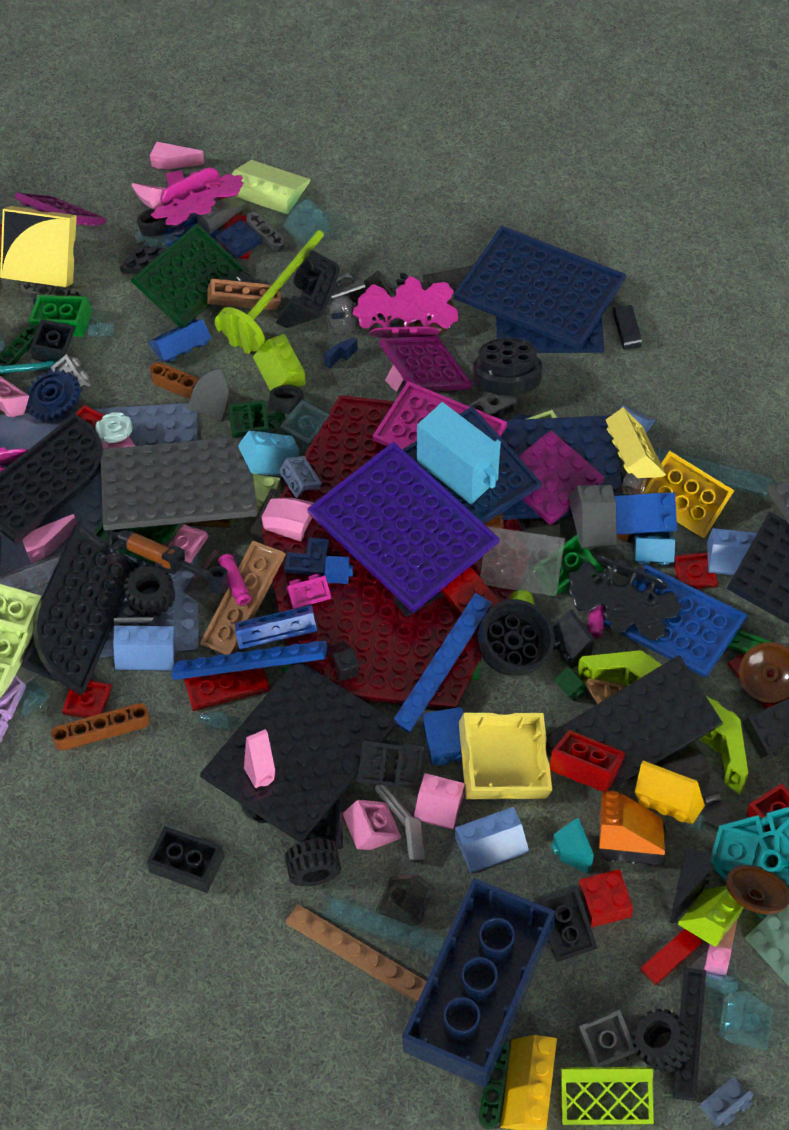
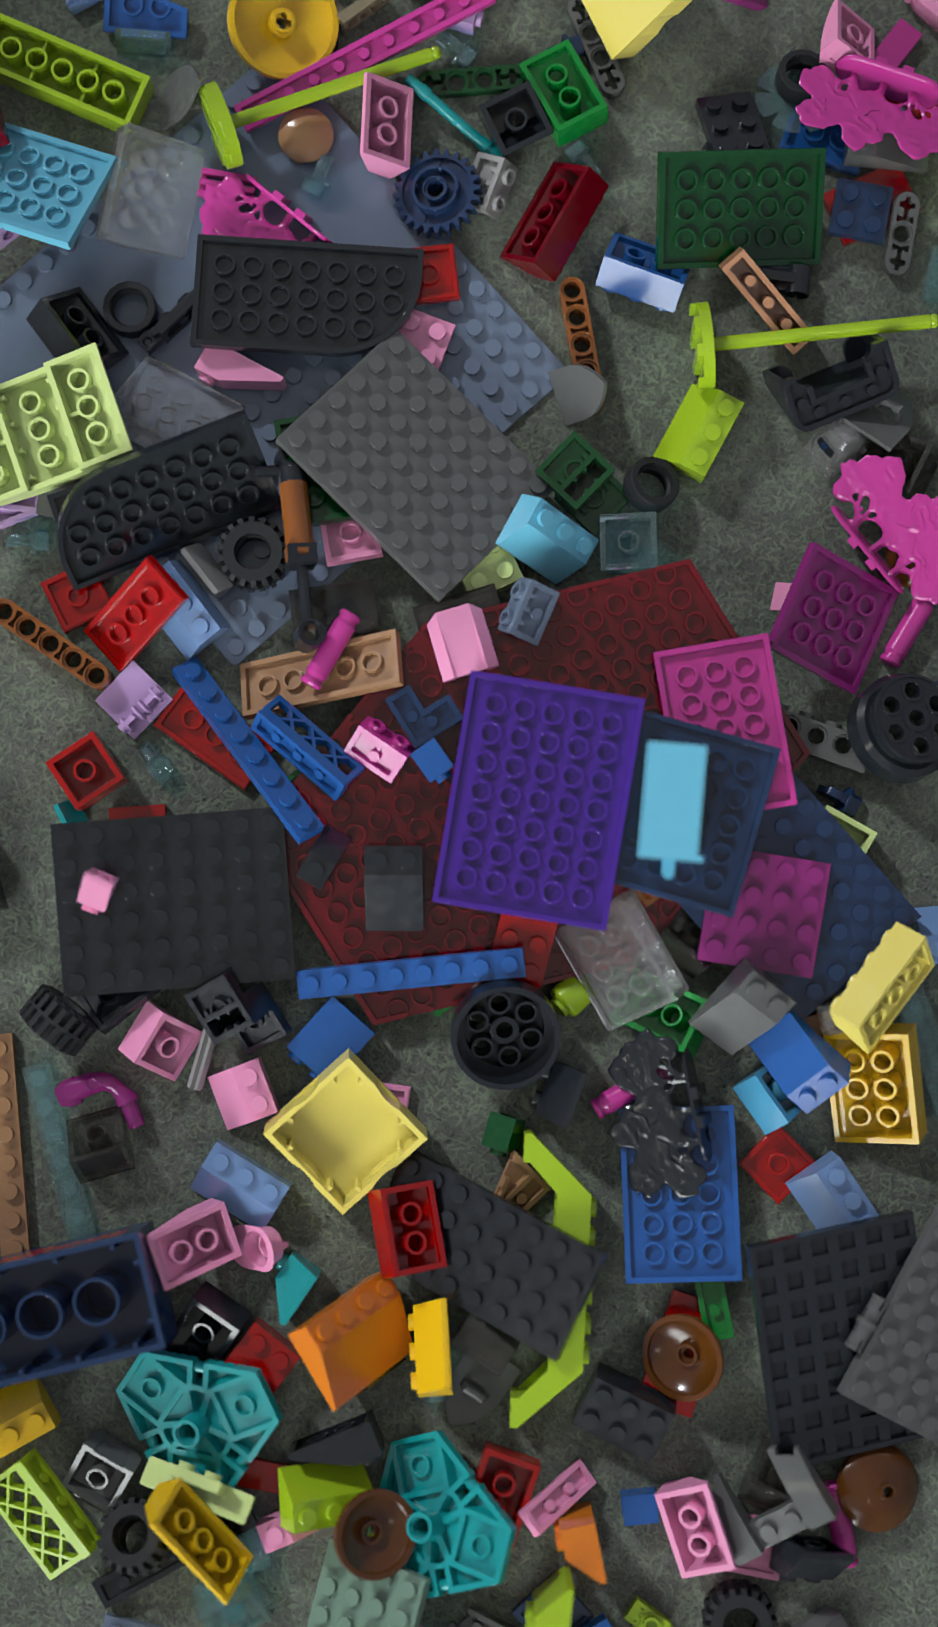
camera: 55 degrees right, 30 degrees up
(114, 427) = (443, 313): light aqua tile -> none
(116, 358) = (555, 220): none -> dark red slope
(125, 666) = (136, 613): none -> red tile
(169, 708) = (133, 700): none -> lavender hinge
(186, 753) = (87, 771): none -> red brick
(201, 786) = (67, 813): none -> teal slope
(342, 350) = (786, 493): dark blue slope -> none
(361, 889) = (76, 1088): none -> magenta piece
(388, 635) = (394, 887): none -> black slope
(414, 839) = (176, 1101): light grey slope -> none
(460, 344) = (906, 632): none -> dark pink axle
(507, 870) = (193, 1243): none -> bright pink slope
(533, 855) = (259, 1247): none -> bright pink piece
(585, 963) = (199, 1416): none -> teal plate
(655, 976) = (217, 1496): none -> yellowish green bracket
(686, 992) = (198, 1537): none -> yellow slope

